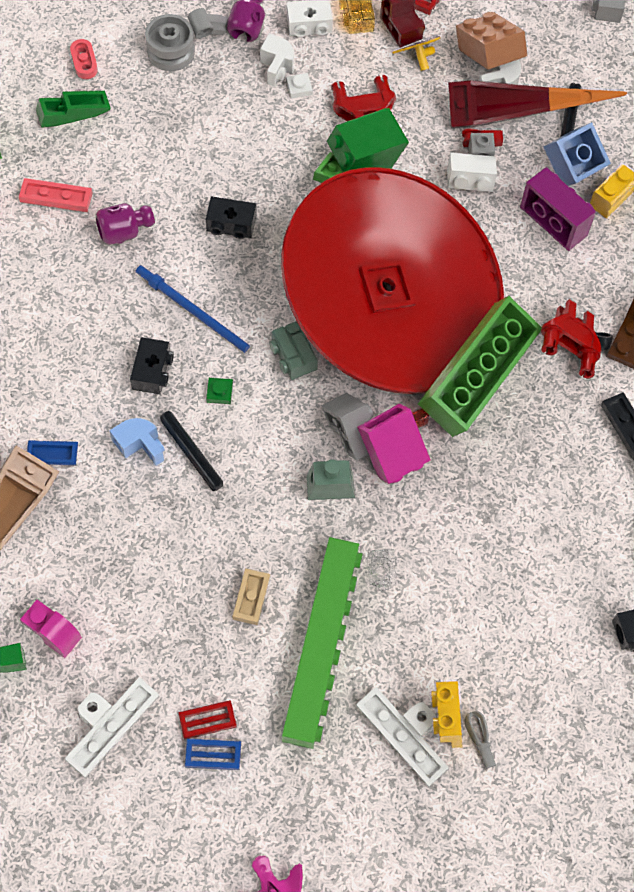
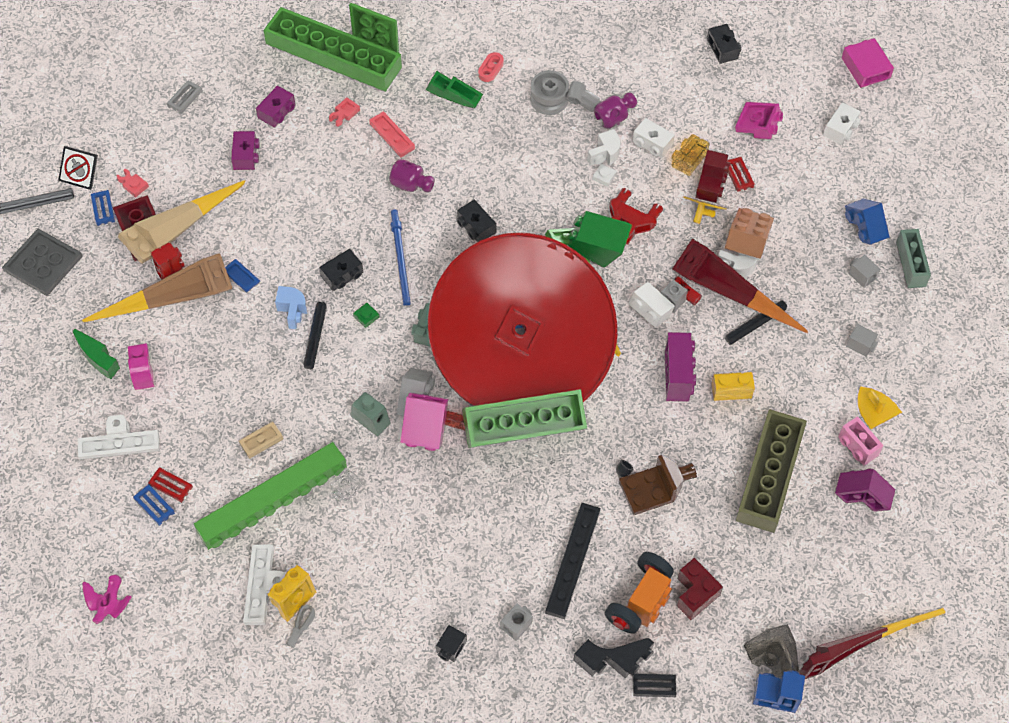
camera: 45 degrees right, 5 degrees down
(574, 335) = (603, 448): red connector -> none
(577, 154) = (729, 344): medium blue brick -> none

